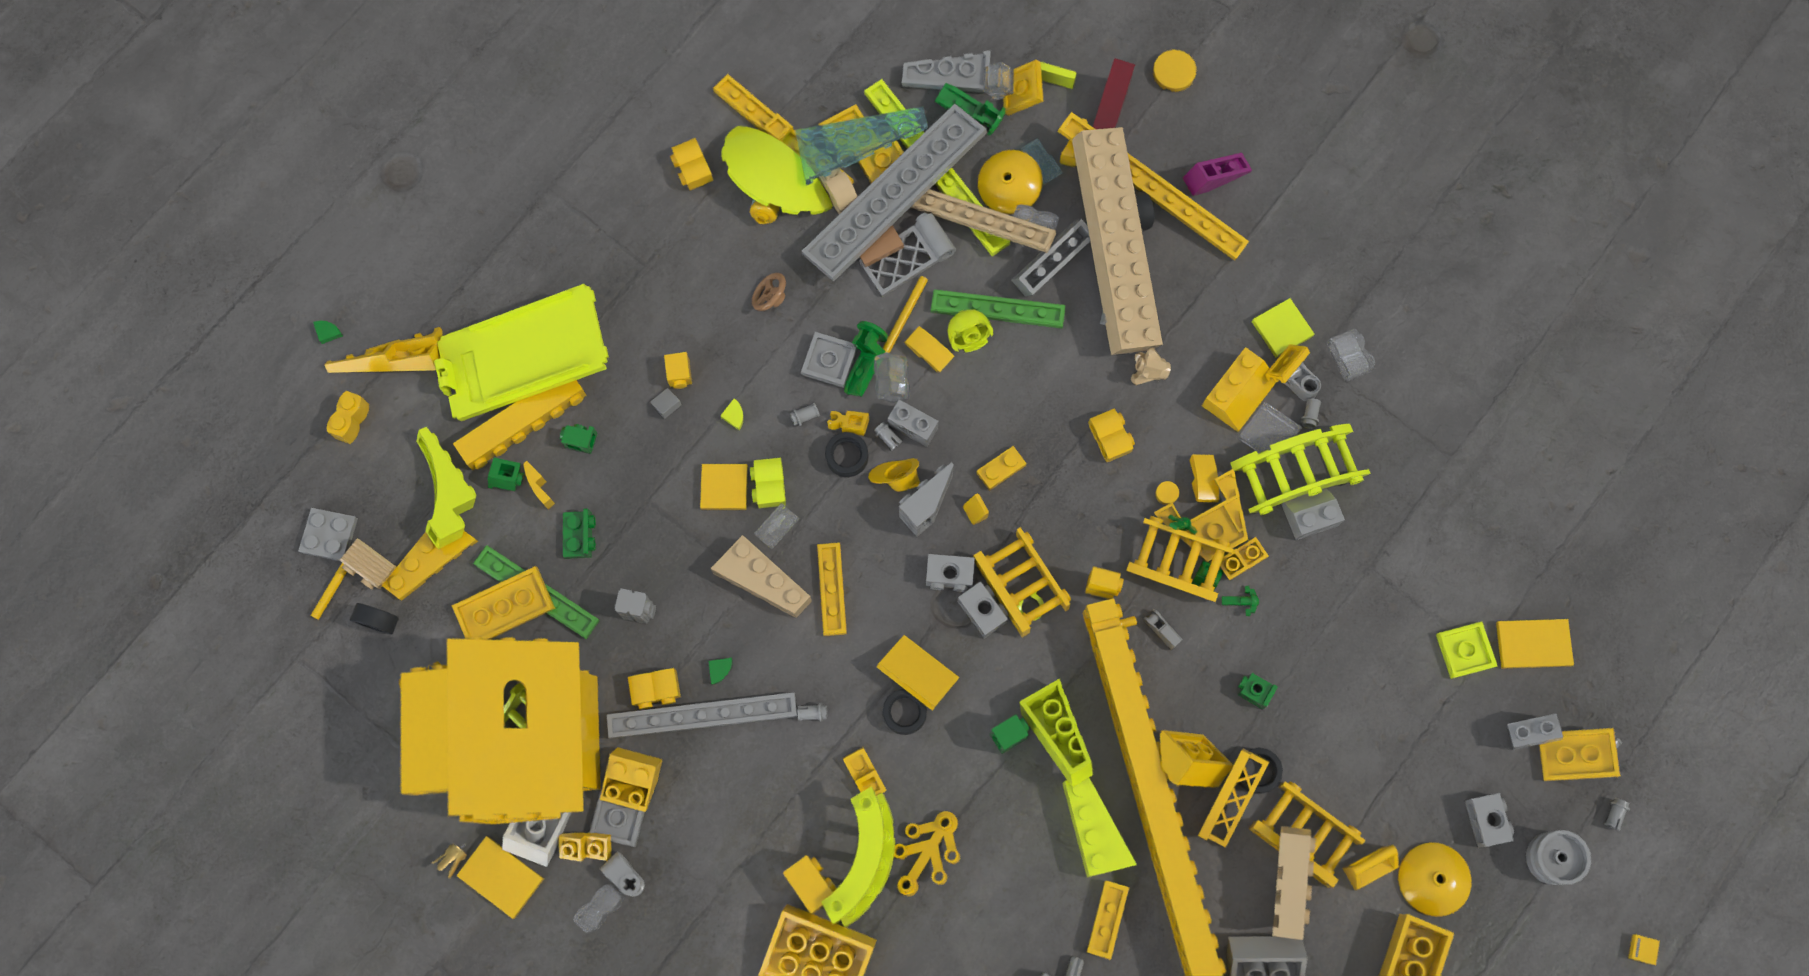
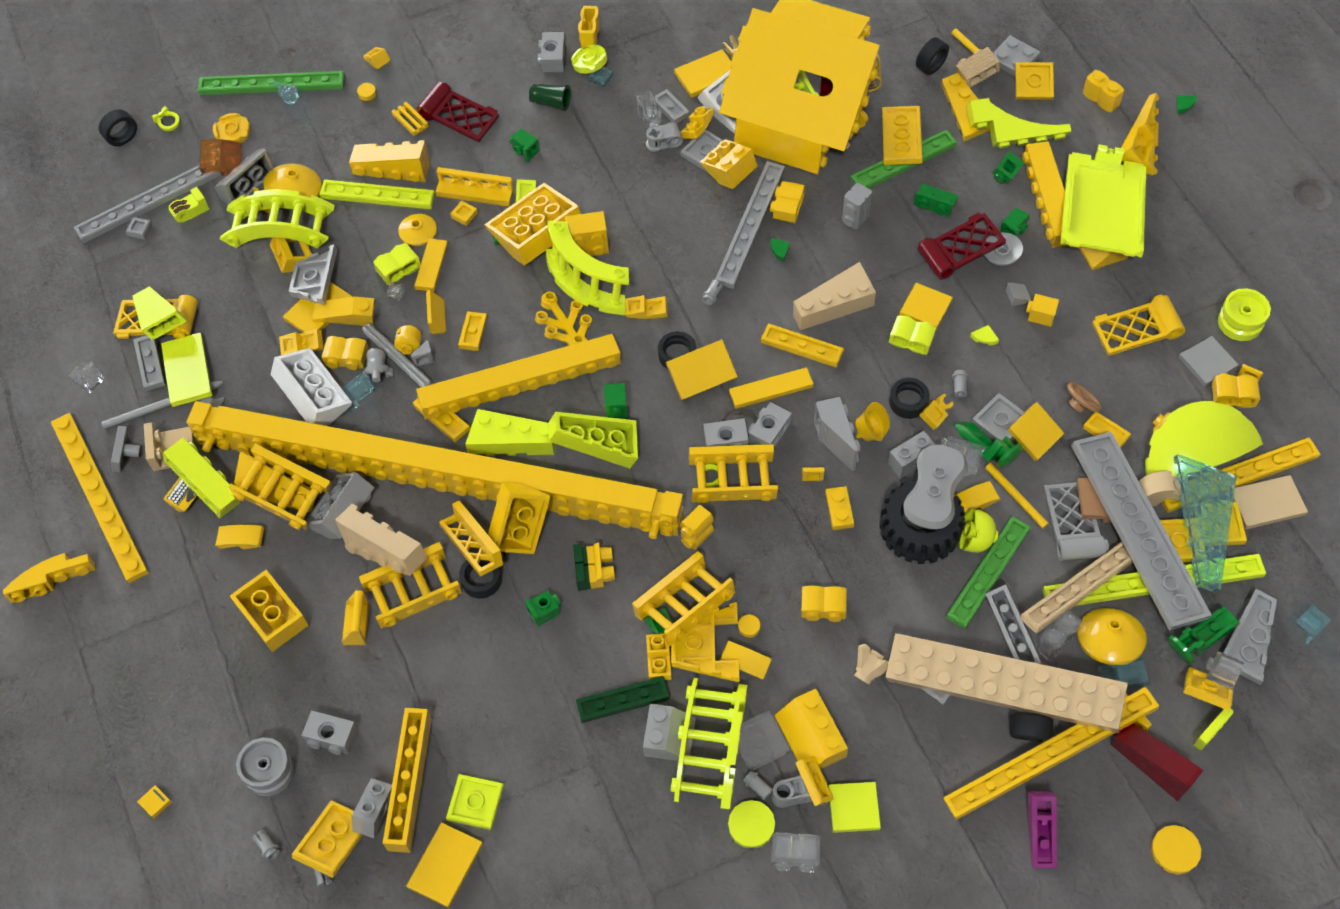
camera: 120 degrees right, 15 degrees down
(361, 496) = (1034, 81): none -> yellow tile
(536, 482) = (992, 184): yellow slope -> none
(573, 892) = (671, 107): none -> light grey plate
(599, 181) = (1244, 314): none -> neon yellow wheel
(610, 429) = (1012, 250): none -> light grey dish
(633, 255) = (1162, 314): none -> yellow piece
(653, 501) = (939, 256): none -> dark red piece
(662, 159) = (1250, 371): none -> yellow slope
(664, 200) = (1208, 360): none -> light grey tile
(776, 526) = (873, 323): clear hips -> none
(778, 127) = (1245, 468): yellow tile -> none
(791, 262) = (1099, 424): none -> yellow tile
(800, 100) = (1269, 502): none -> tan tile
(828, 322) = (1035, 431): none -> yellow tile
(887, 435) = (907, 434): light grey pin -> none
(899, 596) = (771, 388): none -> yellow tile
(913, 27) = (1312, 622): none -> clear light blue panel
(970, 374) = (932, 498): none -> light grey plate
(987, 354) = (914, 544): none -> black tyre
(988, 948) = (473, 331): none -> yellow plate
(1024, 859) = (518, 376): none -> yellow brick
(1166, 632) = (631, 564): light grey bar -> none
(1182, 523) = (712, 616): green piece -> none
(1190, 670) = (589, 567): none -> yellow hips
(1252, 600) = (618, 645): green piece -> none
(1302, 568) = (622, 699): none -> dark green plate
(1346, 403) = (751, 824): none -> neon yellow tile
(1419, 883) = (316, 680): yellow dish -> none
(1490, 716) = (407, 780): none -> yellow brick

